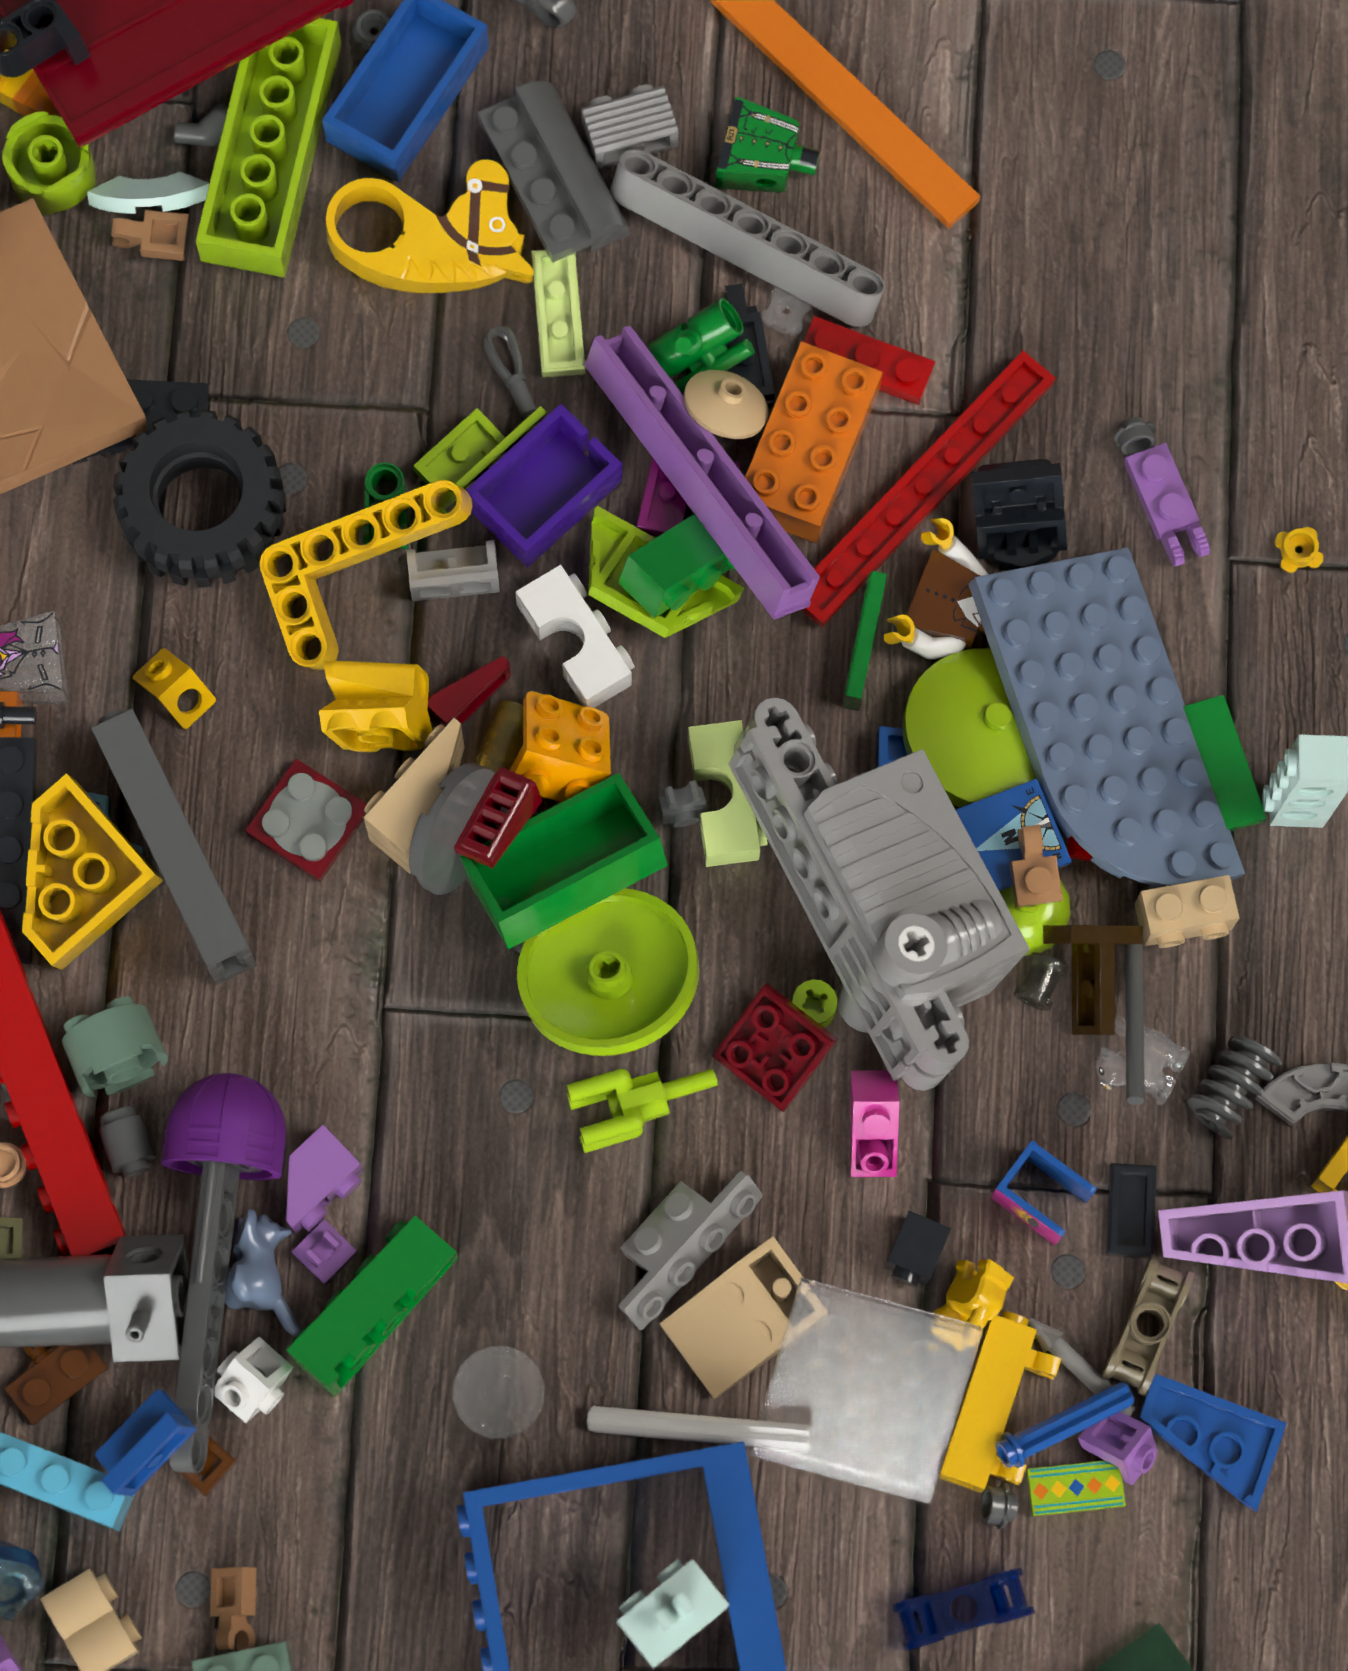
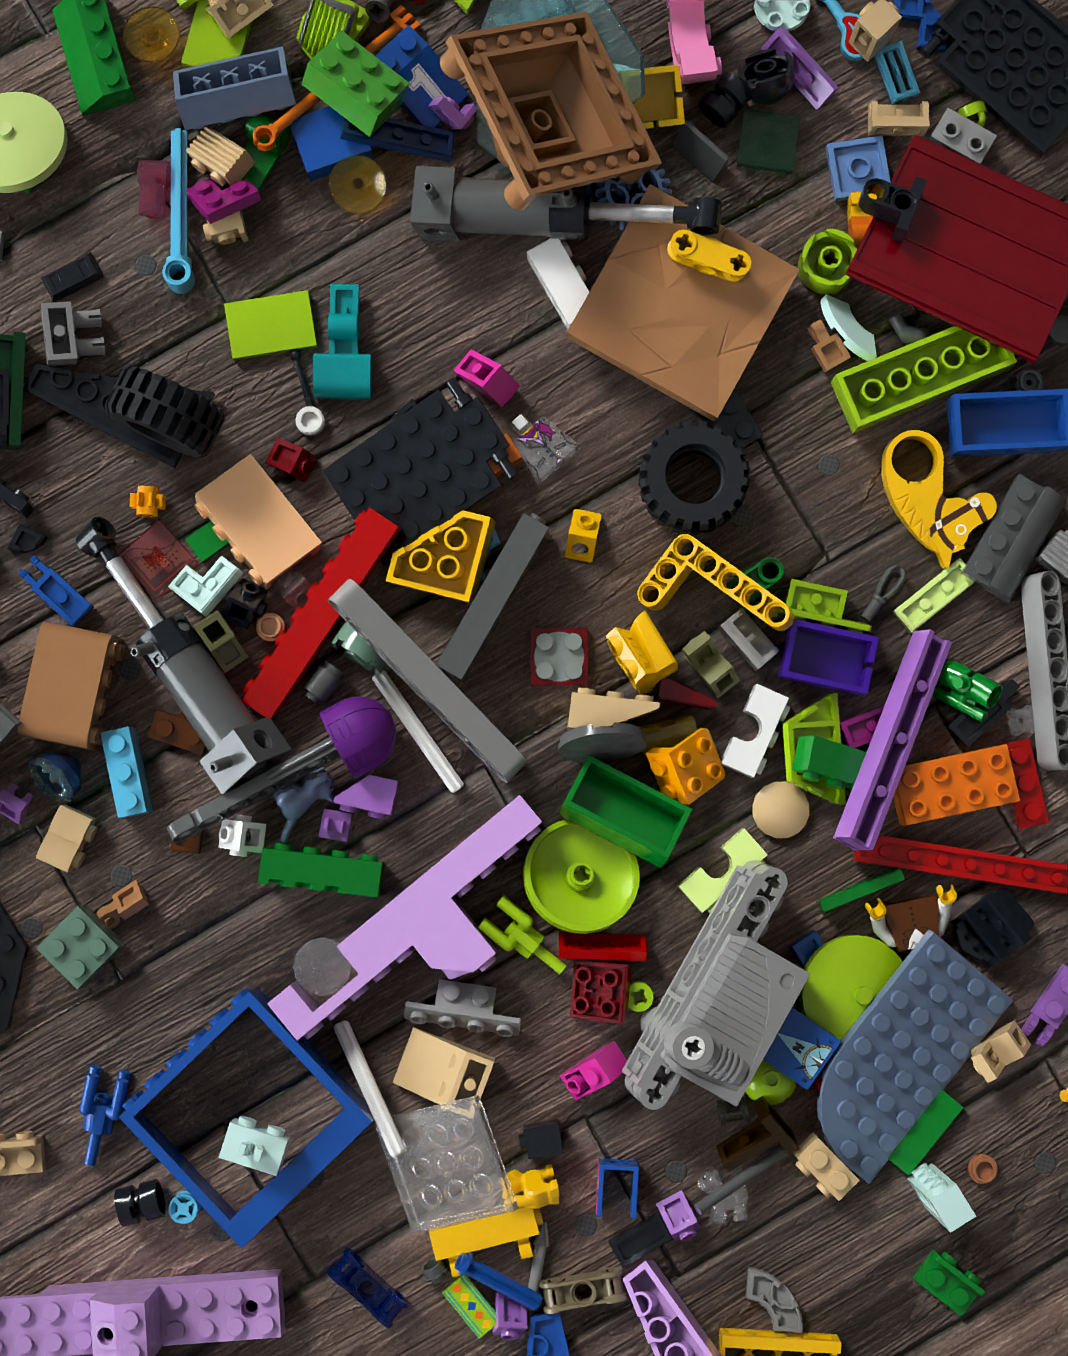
camera: 60 degrees right, 10 degrees up
(143, 1444) = (168, 806): blue panel -> none
(218, 994) = (427, 680): none -> light grey beam
(278, 1062) = (418, 731): none -> white axle
(451, 637) = (710, 665): none -> olive brick
(506, 791) = (633, 752): dark red slope -> none
(527, 1208) = (421, 917): none -> lavender piece
(682, 805) = (698, 853): dark grey plate -> none
(697, 673) = (780, 810): none -> tan dish
(719, 1008) = (602, 946): none -> red plate
(725, 404) = (941, 726): tan dish -> none
(1034, 877) = (784, 1076): medium nougat plate -> none
(1132, 1139) = (678, 1217): none -> medium lavender bracket
(1179, 602) = (999, 1050): none -> tan brick
(1230, 1084) = (745, 1253): dark grey piece -> none
(1316, 719) = (982, 1169): none -> nougat plate

